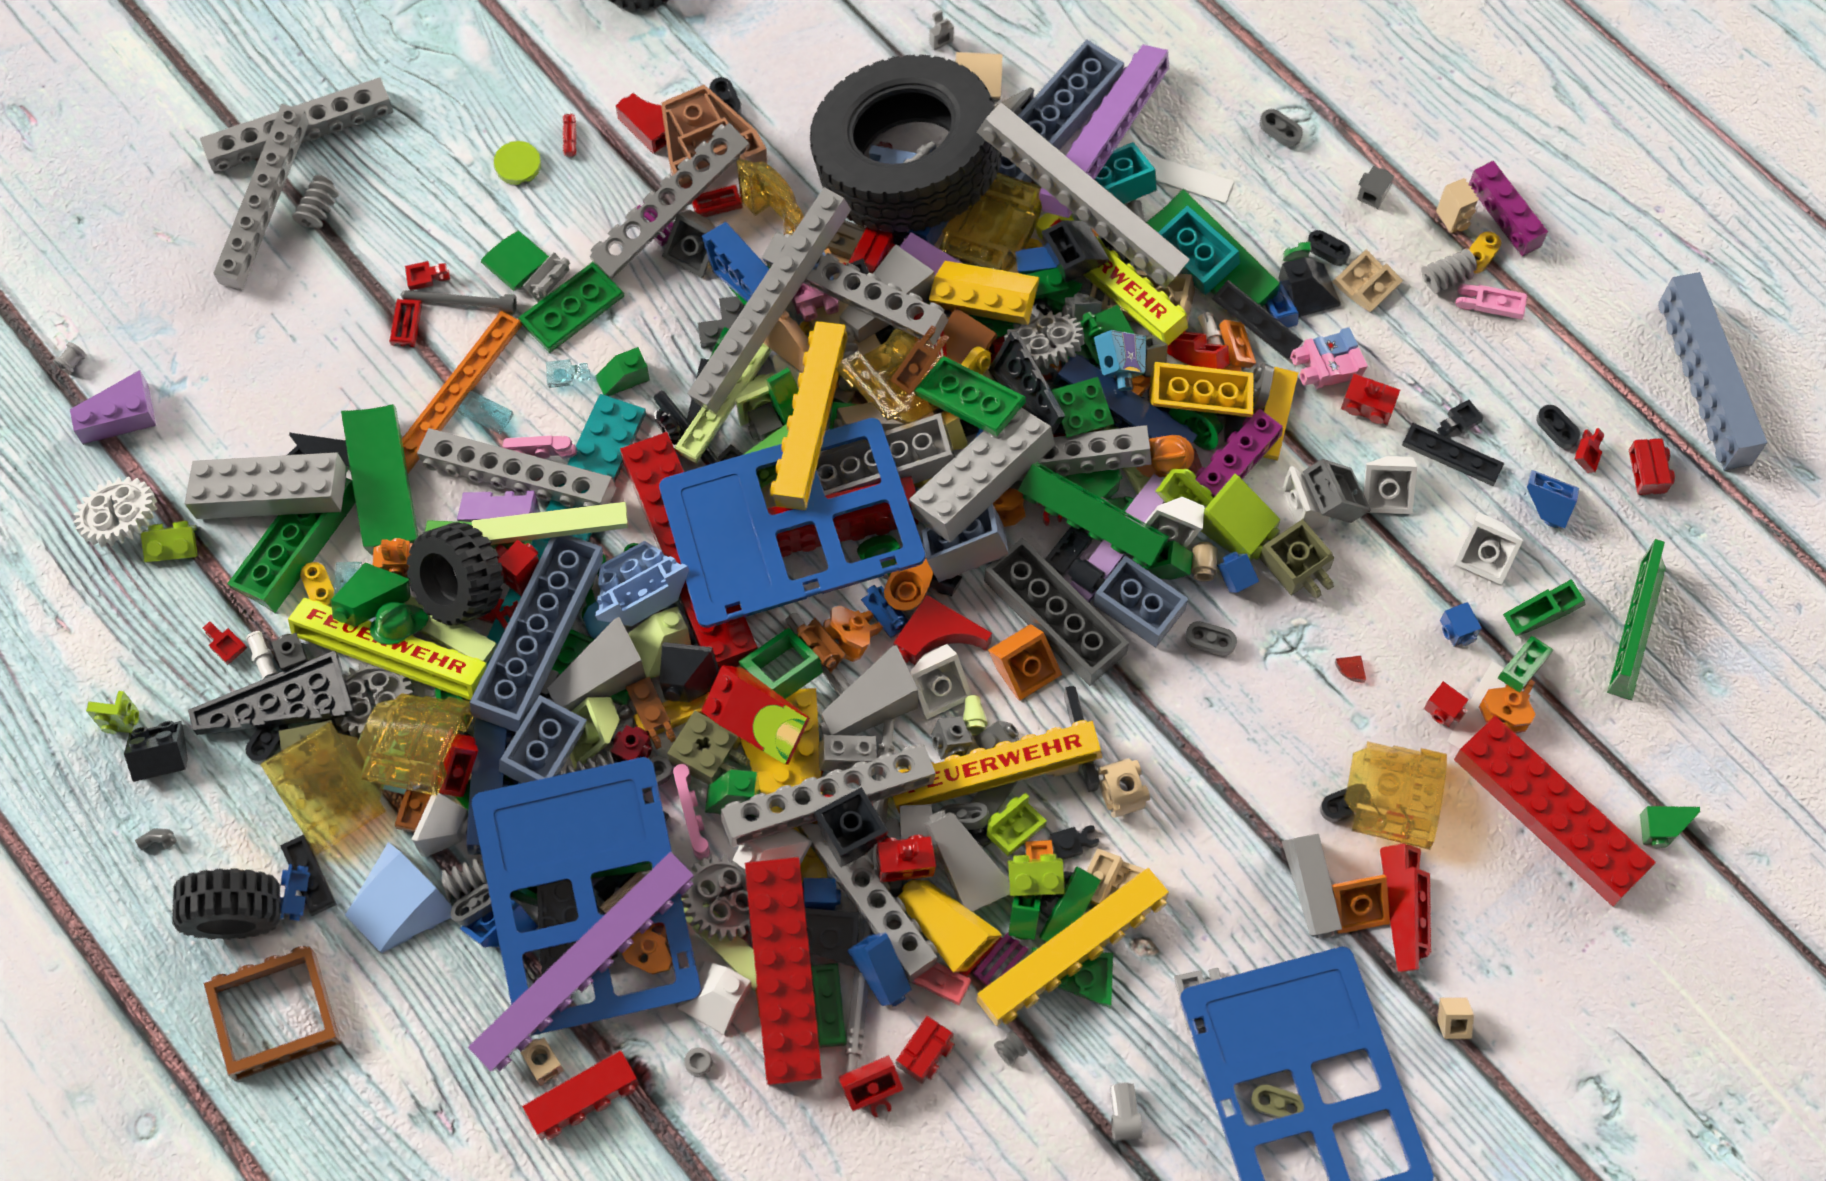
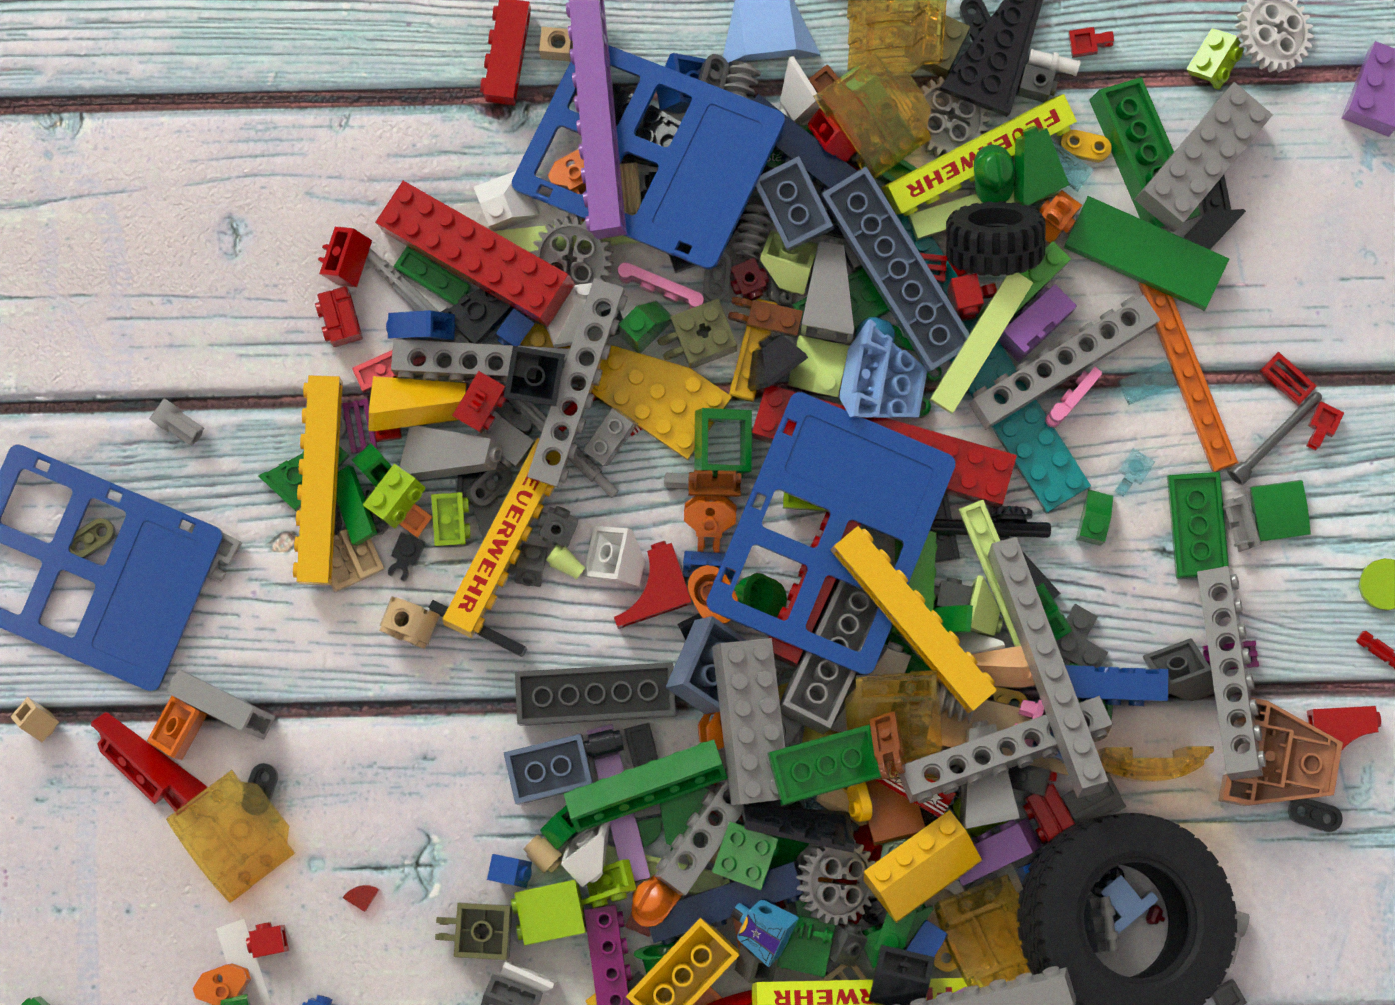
camera: 135 degrees right, 15 degrees up
(698, 1062) = (467, 154): light grey tile -> none
(718, 205) = (1194, 742): red tile -> none
(755, 713) = (694, 384): red slope -> none
(876, 695) = (638, 492): light grey slope -> none
(1010, 1048) = (289, 378): dark grey wheel -> none
(1025, 661) = (576, 637): orange slope -> none
(1211, 637) = (476, 802): dark grey plate -> none
(1554, 810) = (117, 945): red brick -> none

